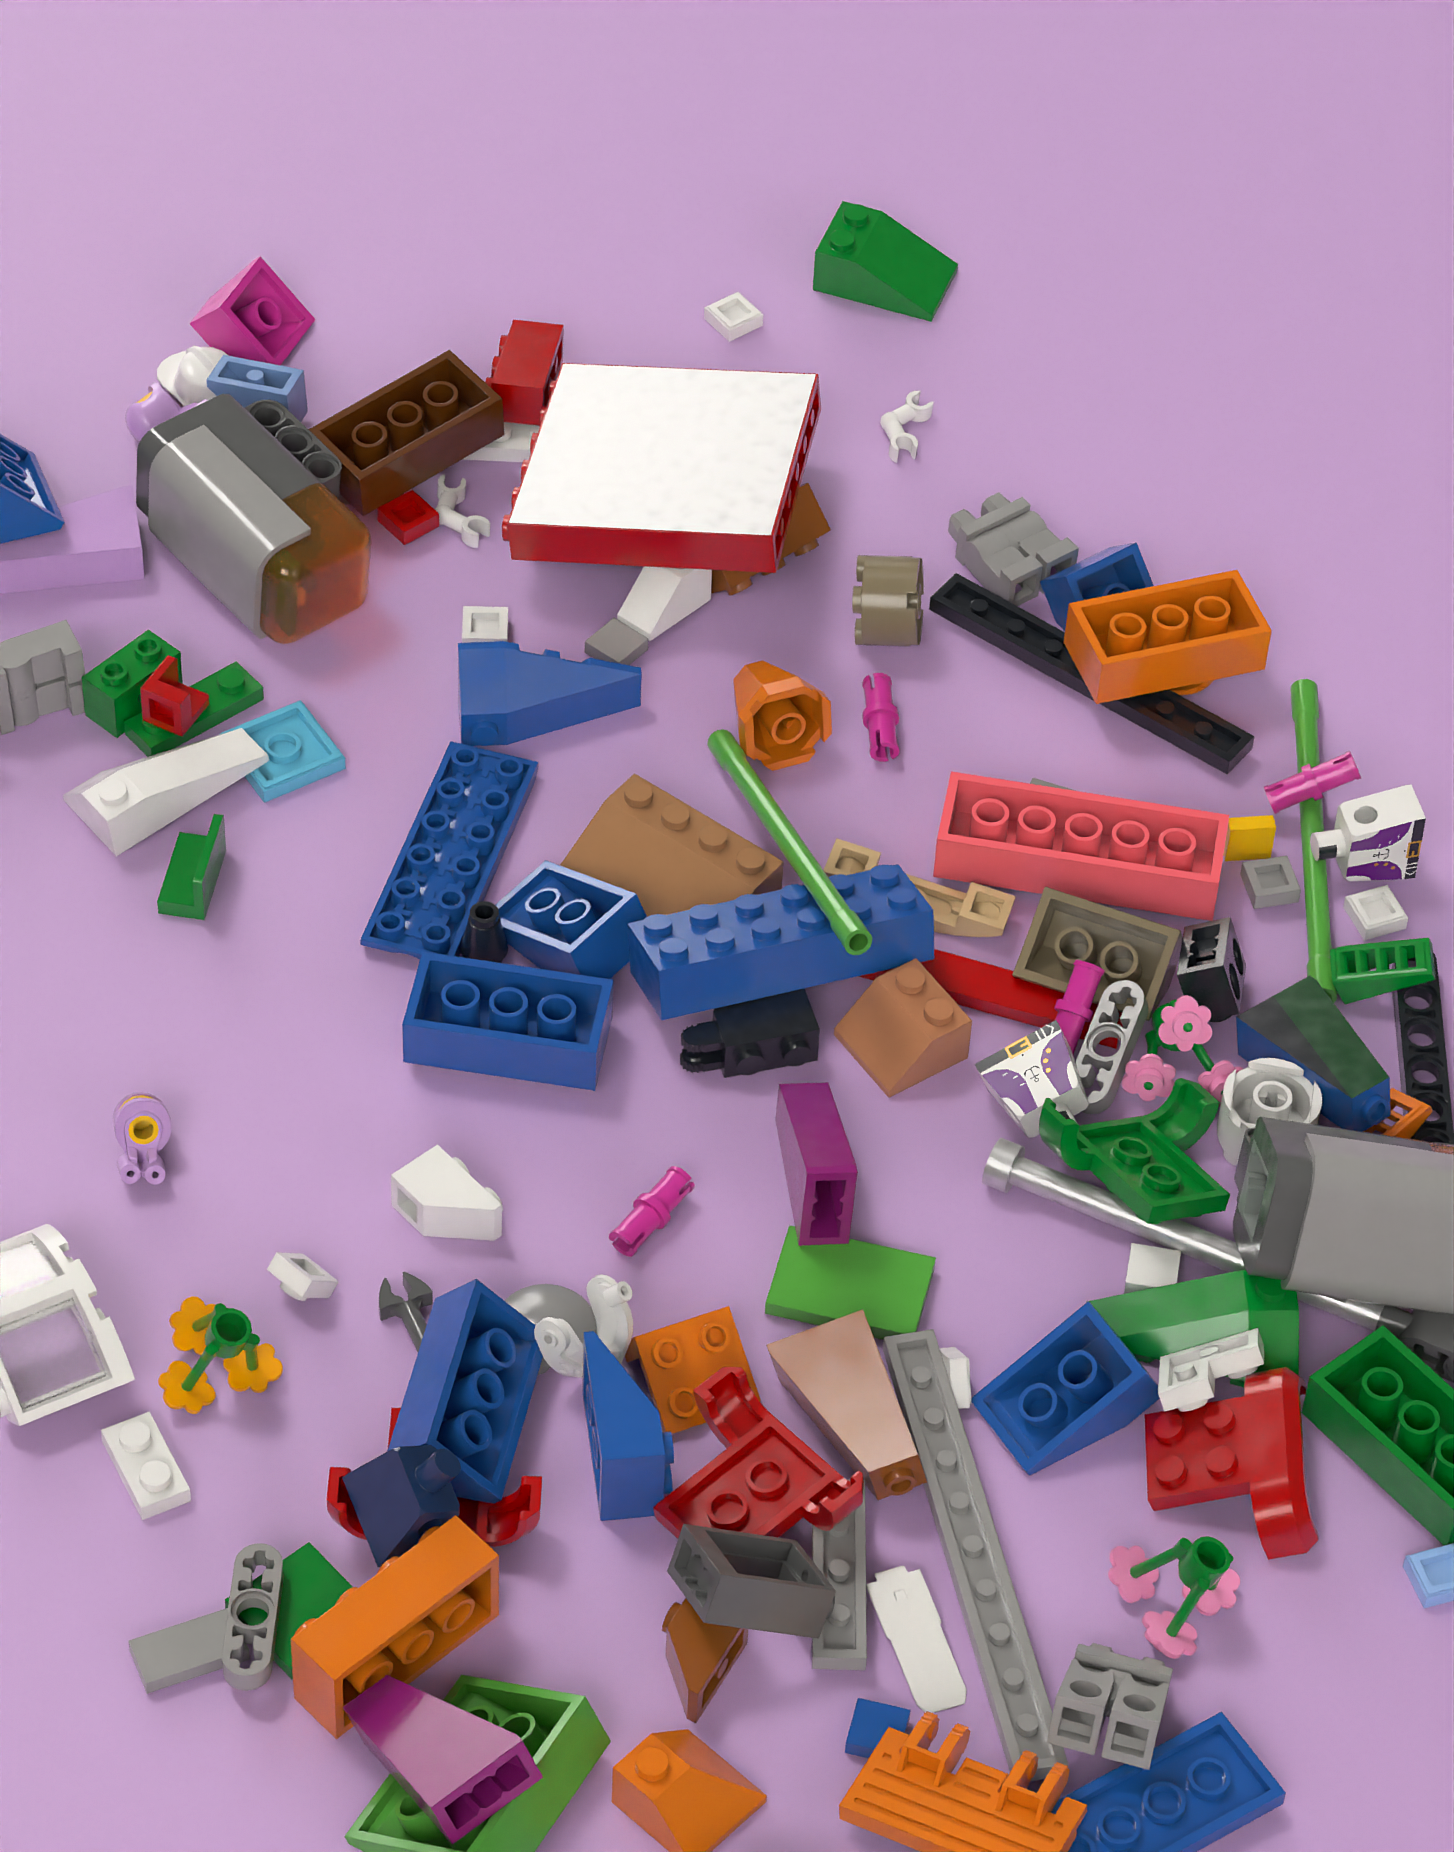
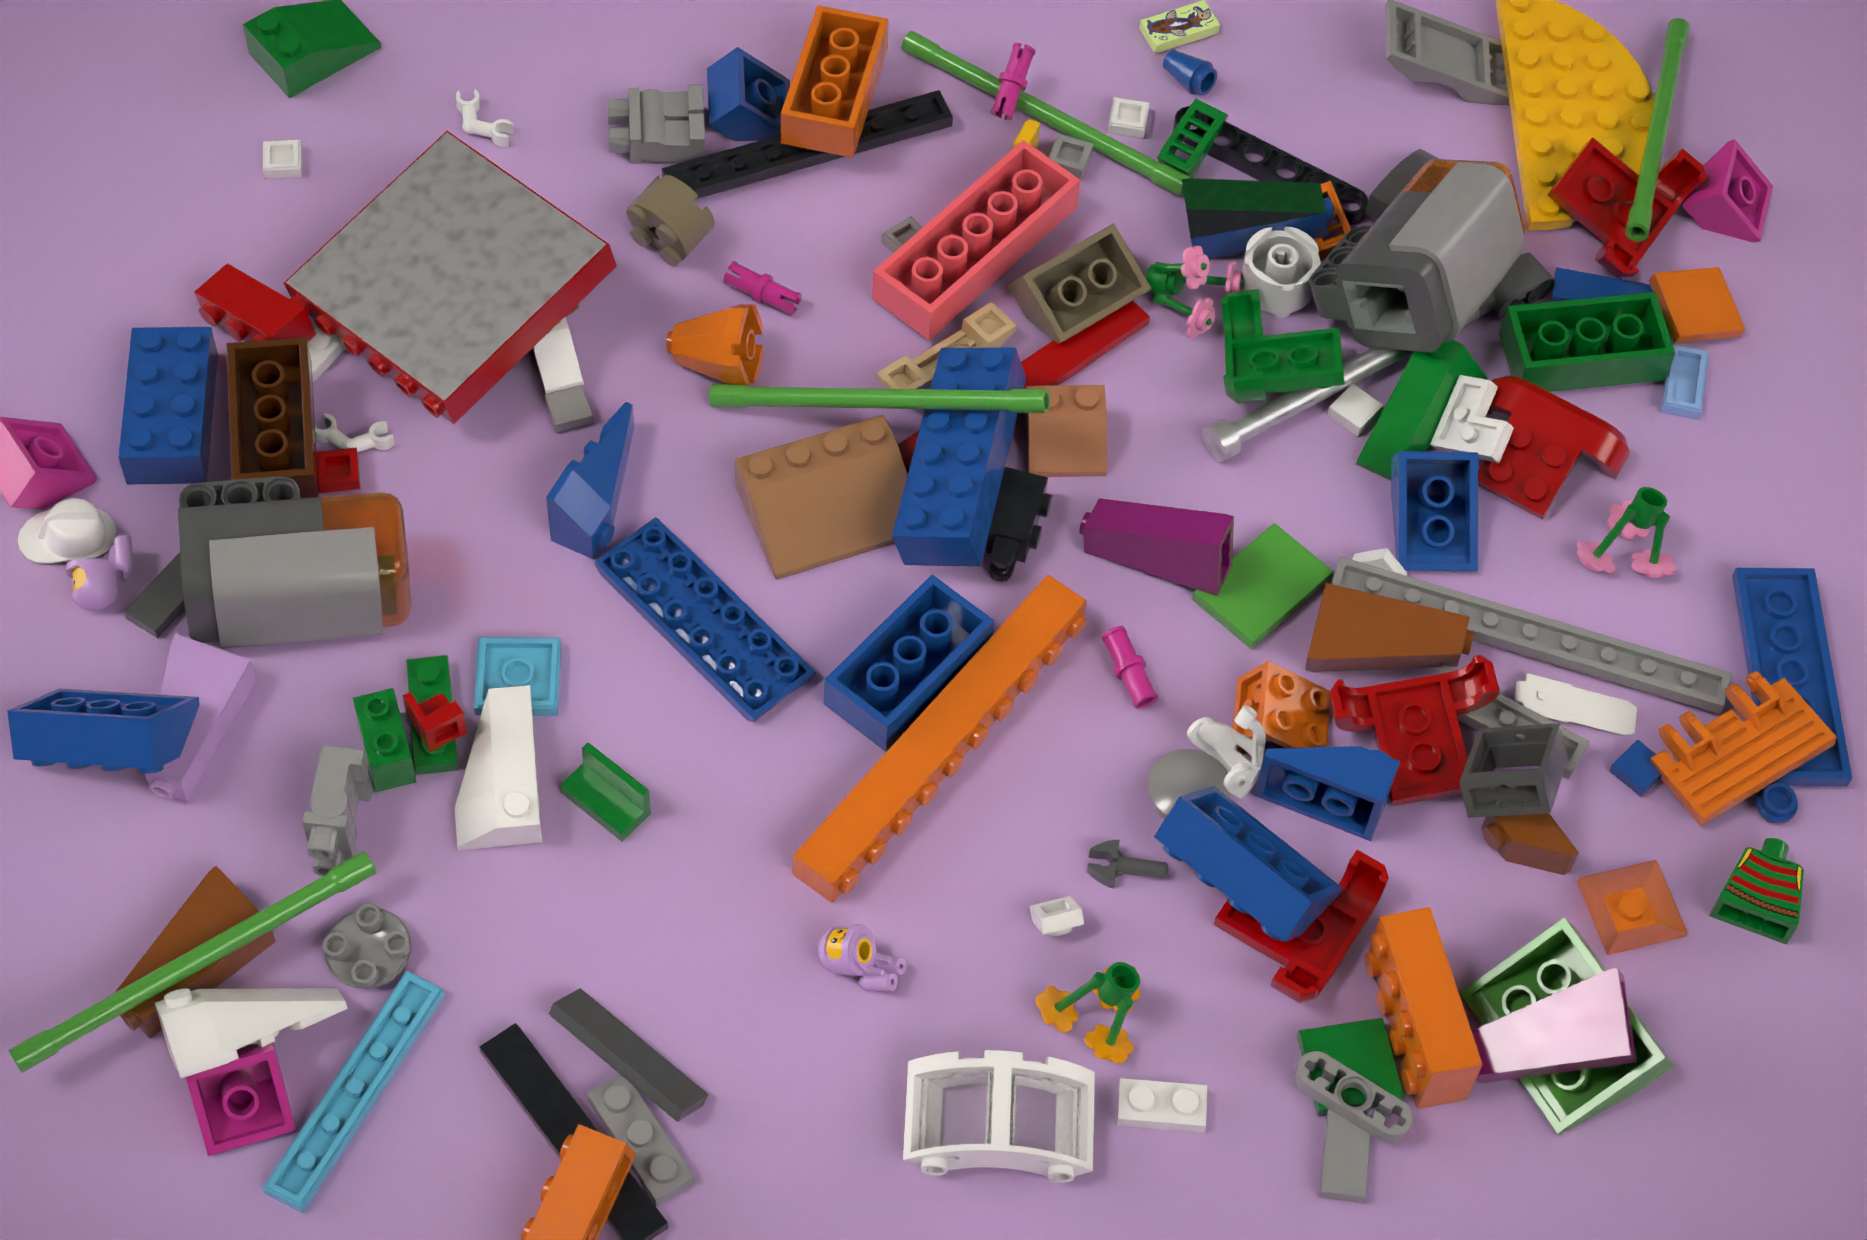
camera: 60 degrees left, 10 degrees up
(256, 381) = (136, 496): medium blue slope -> none
(378, 353) = (168, 405): none -> blue brick
(403, 1497) = (1336, 942): dark blue torso -> none
(444, 1199) = (1041, 787): white slope -> none
(449, 1091) = (939, 739): none -> orange brick
(484, 624) = (489, 482): white tile -> none
(484, 934) = (812, 638): black cone -> none
(570, 921) = (835, 578): blue slope -> none
(1032, 1071) = (1173, 380): torso -> none
(1077, 1000) = (1121, 325): dark pink pin -> none
(1103, 1026) = (1138, 306): light grey beam -> none
(1114, 1687) = (1709, 620): light grey hips -> none
(1212, 967) = (1144, 228): black brick -> none
(1375, 836) = (1082, 89): white torso -> none

